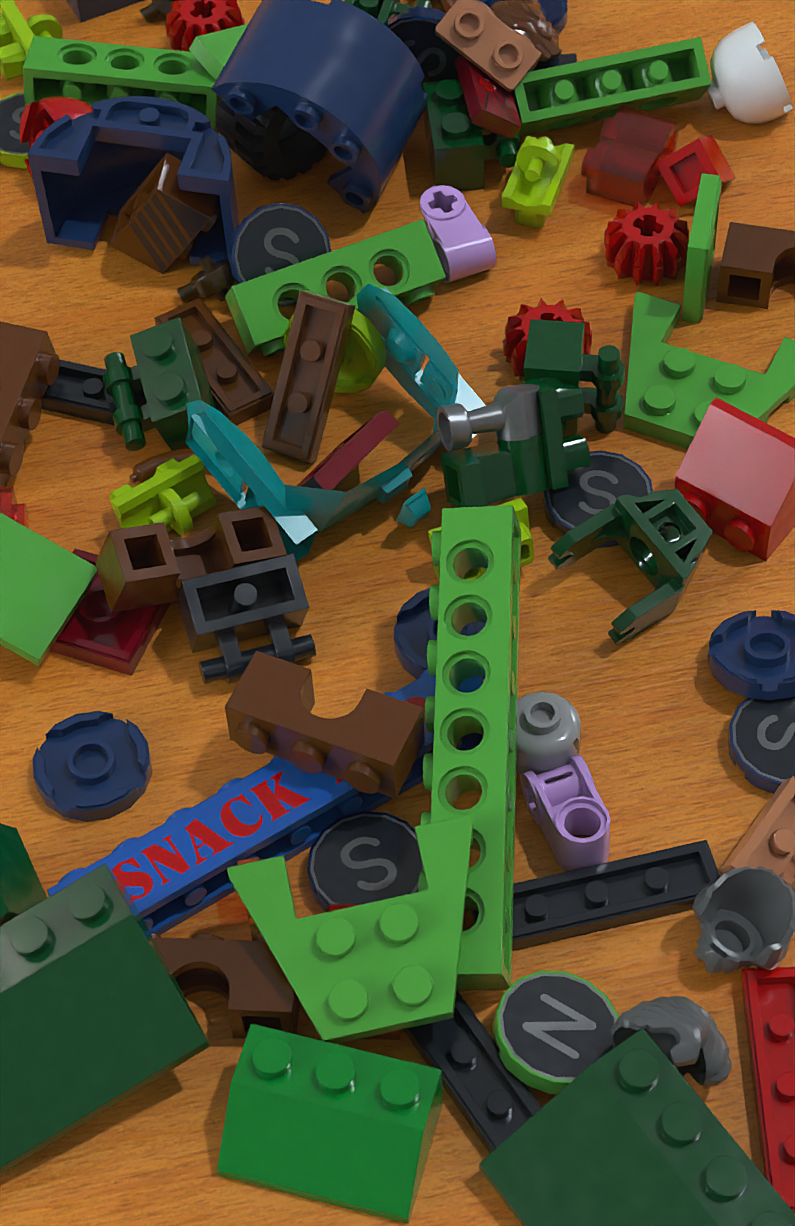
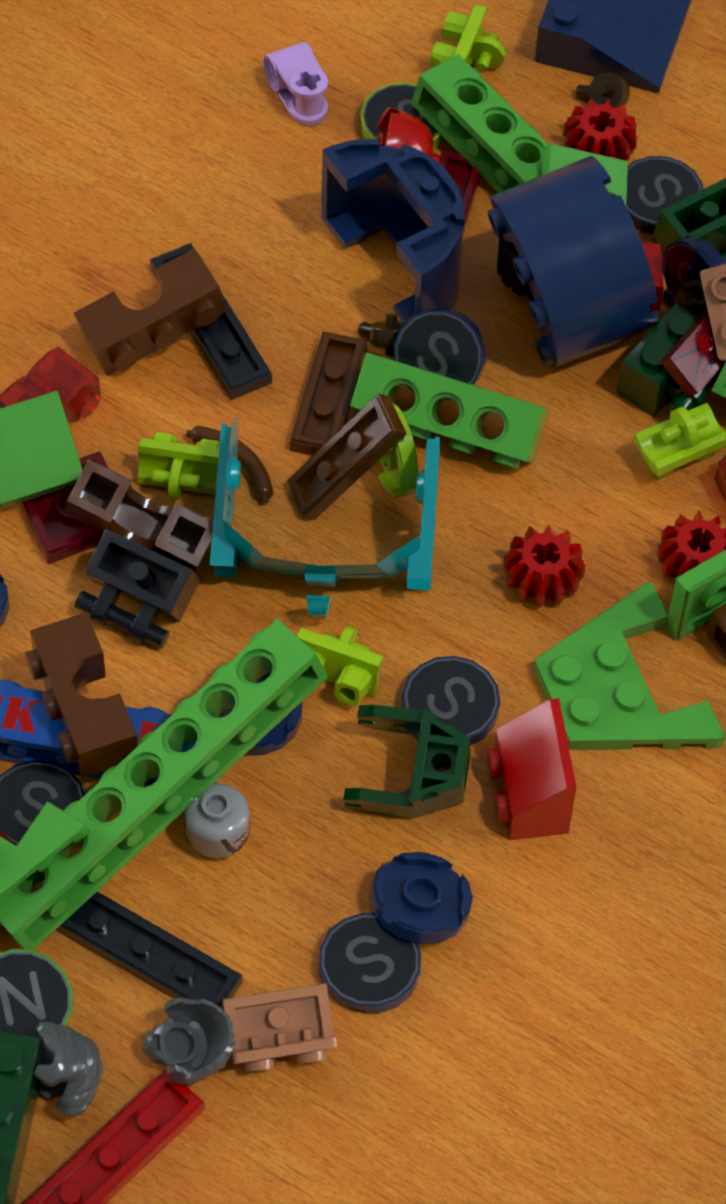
camera: 40 degrees right, 5 degrees up
(161, 219) = (381, 269): reddish brown brick -> none
(170, 375) = (265, 387): dark green brick -> none
(350, 452) = (299, 533): dark red tile -> none
(456, 233) = (576, 434): lavender piece -> none
(528, 447) = (412, 628): dark green hips -> none
(558, 358) = (502, 602): dark green brick -> none
(568, 806) = (183, 876): lavender piece -> none

